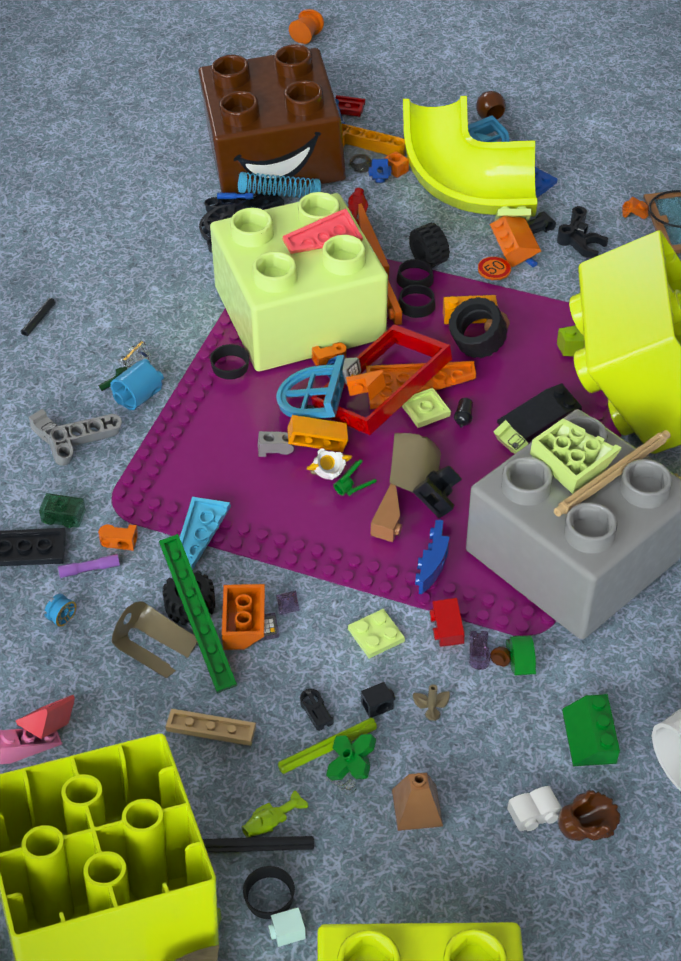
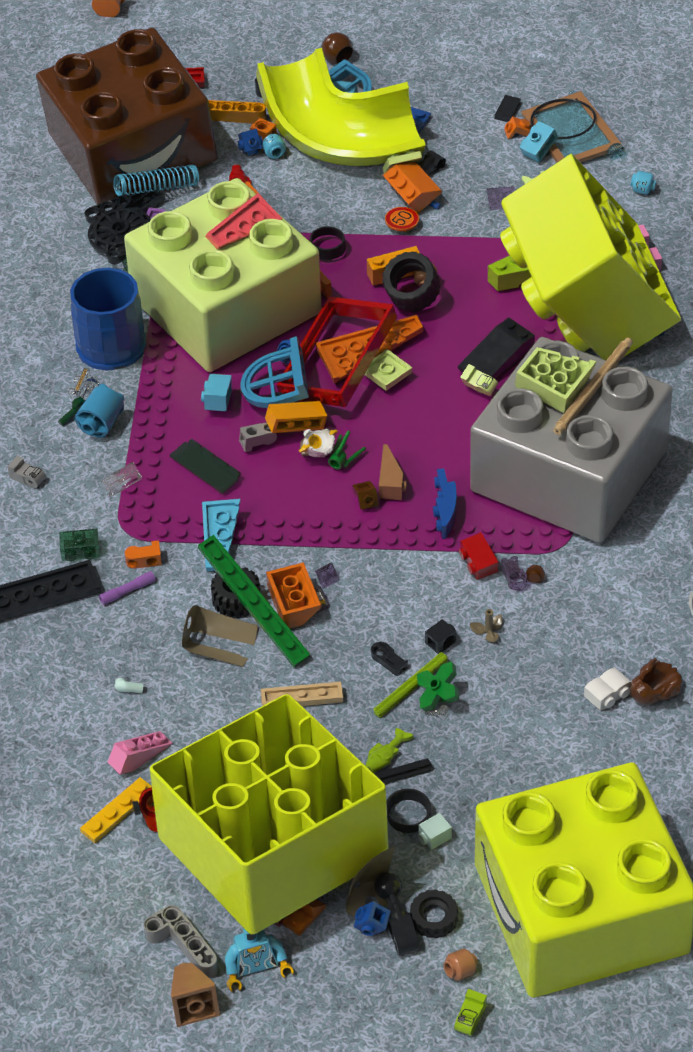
camera: 15 degrees left, 0 degrees up
(40, 668) = (122, 685): none -> light aqua arm
(48, 718) = (153, 723): coral slope -> none
(60, 610) = (121, 631): dark azure wheel -> none
(107, 427) = (70, 469): light grey beam -> none
(128, 455) = (121, 479): none -> clear panel
(176, 299) = (107, 319): none -> blue piece
(215, 461) = (206, 465): none -> clear green windscreen
(220, 195) = (111, 201): blue piece -> none
(229, 350) = (176, 357): black tyre -> none
(253, 392) = (217, 392): none -> medium azure brick
(323, 355) = (270, 343): orange leg -> none
(351, 367) = (307, 348): slope -> none
(357, 528) = (366, 494): none -> reddish brown bracket
(363, 167) = (229, 142): clear smoke piece -> none
(368, 382) = (330, 357): orange slope -> none
(376, 633) = (416, 582): yellowish green plate -> none
(400, 178) = (274, 146): none -> medium azure head
(413, 460) = (398, 423): dark tan piece -> none
(416, 803) = (506, 708): medium nougat slope -> none
(417, 311) = (340, 279): black tyre -> none
(429, 244) = (332, 209): black tyre -> none
(440, 485) = (428, 437): black tile -> none
(463, 414) = (424, 365): black piece -> none
(522, 655) = (554, 566): green brick -> none
(576, 236) = (468, 166): black piece -> none
(591, 731) = (635, 615): green slope -> none
(632, 188) = (507, 108): none -> black tile
(649, 222) = (538, 141): none -> medium azure brick

